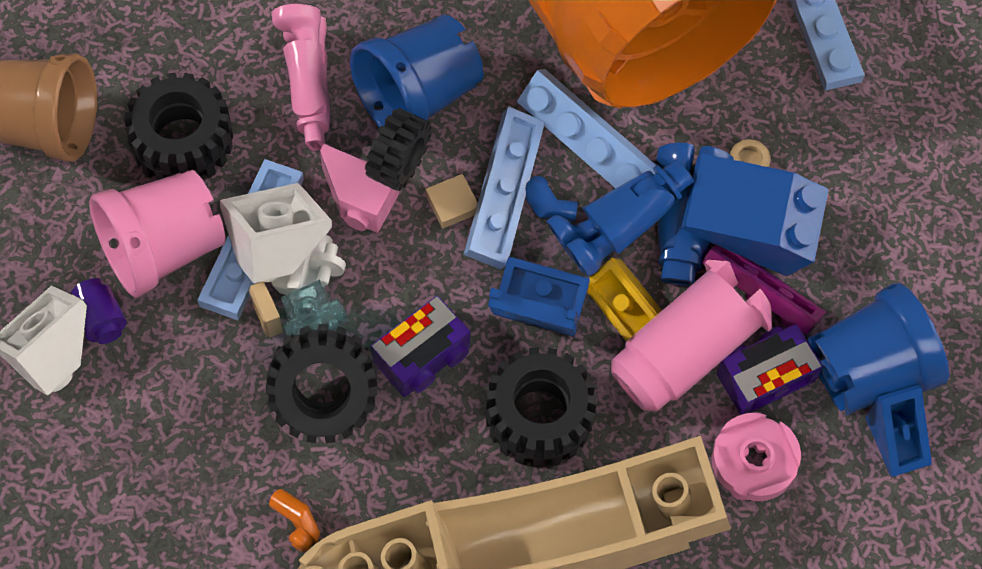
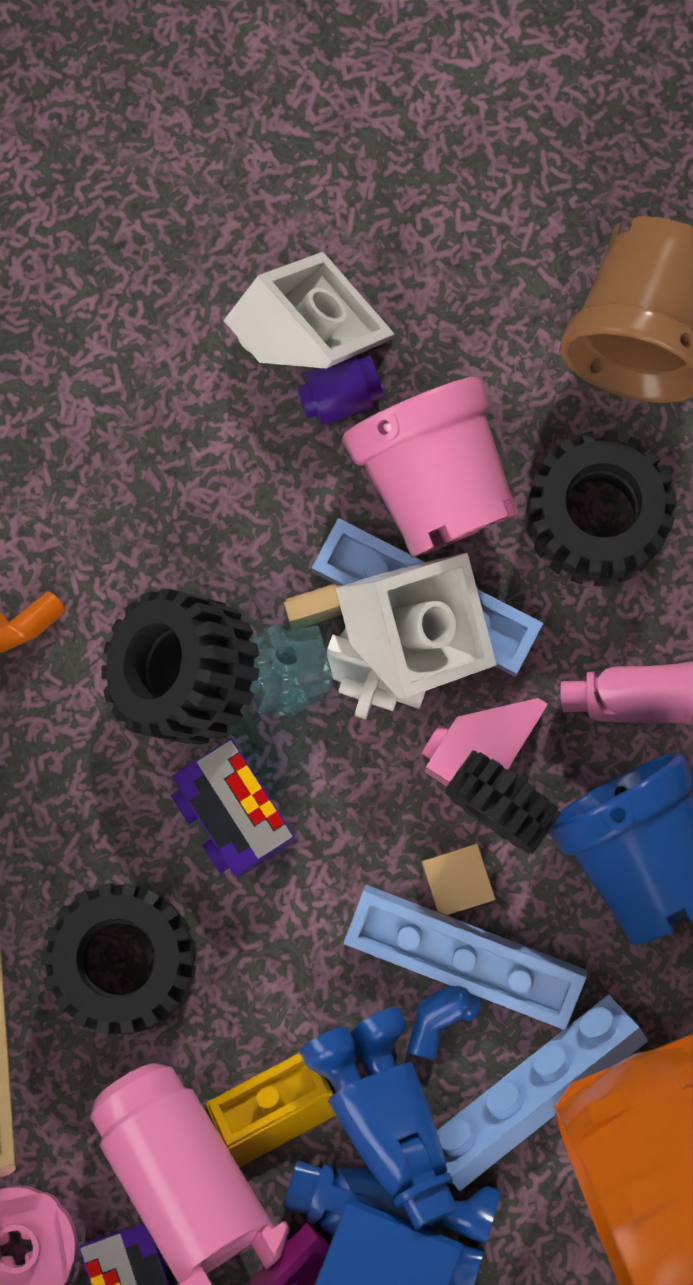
camera: 105 degrees right, 15 degrees up
(540, 296) = (273, 978): blue plate -> none

